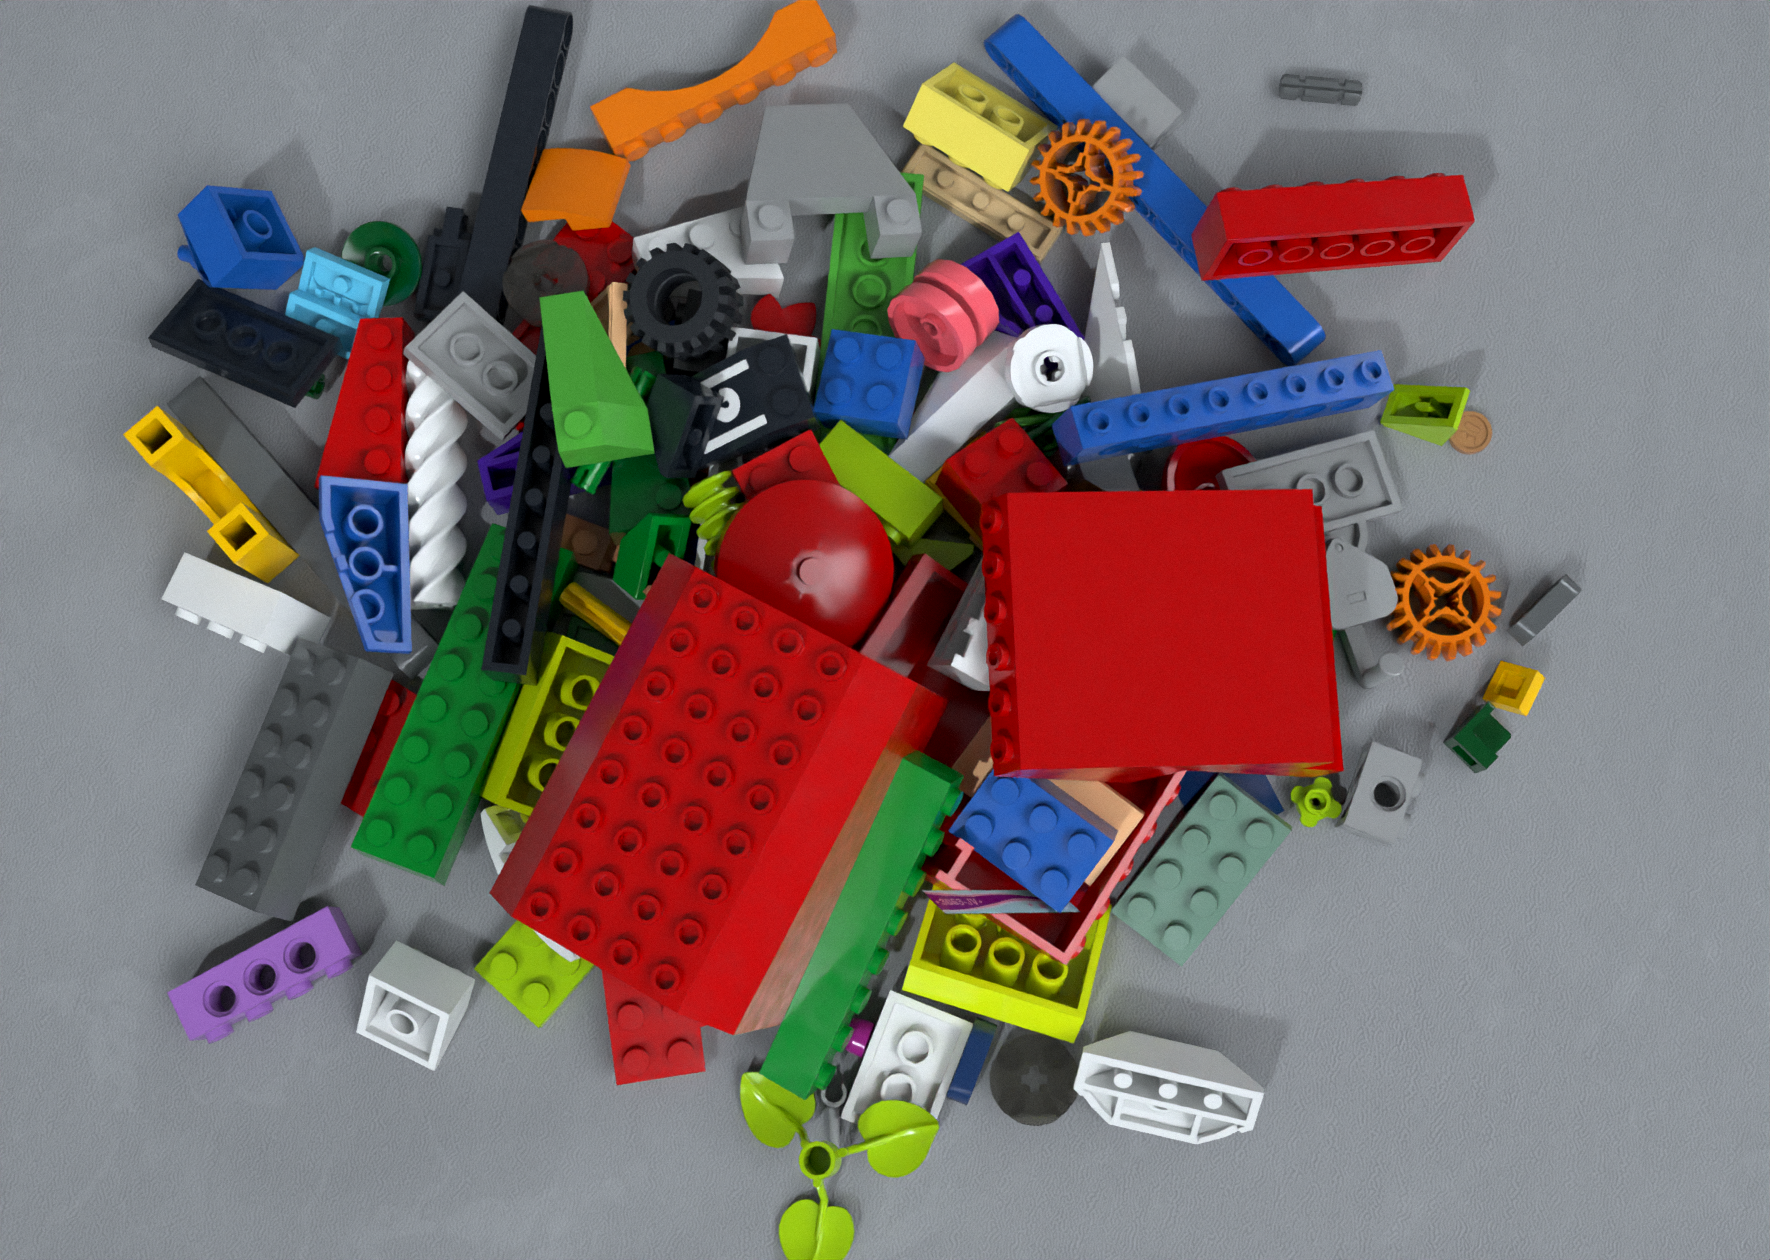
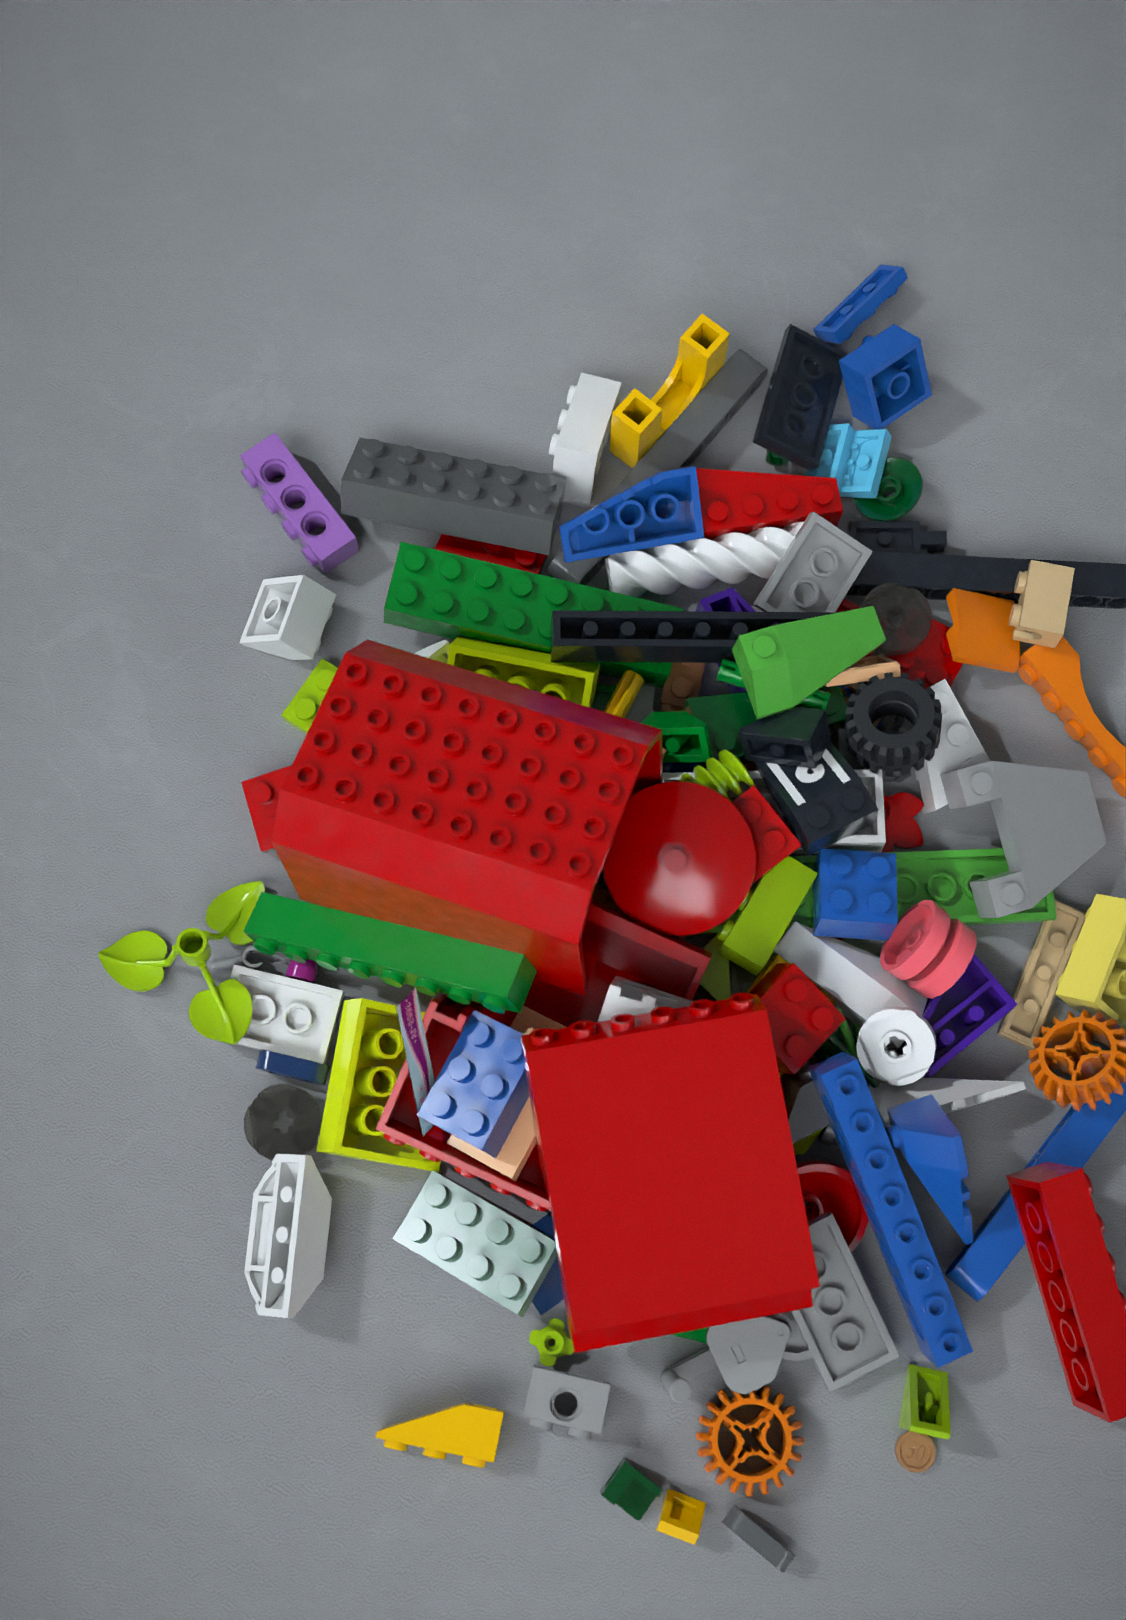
camera: 75 degrees right, 5 degrees down
(134, 252) = (860, 304): none -> blue plate
(560, 114) = (1042, 603): none -> tan brick
(1177, 346) = (935, 1155): none -> blue wedge
(1397, 921) = (458, 1430): none -> yellow slope

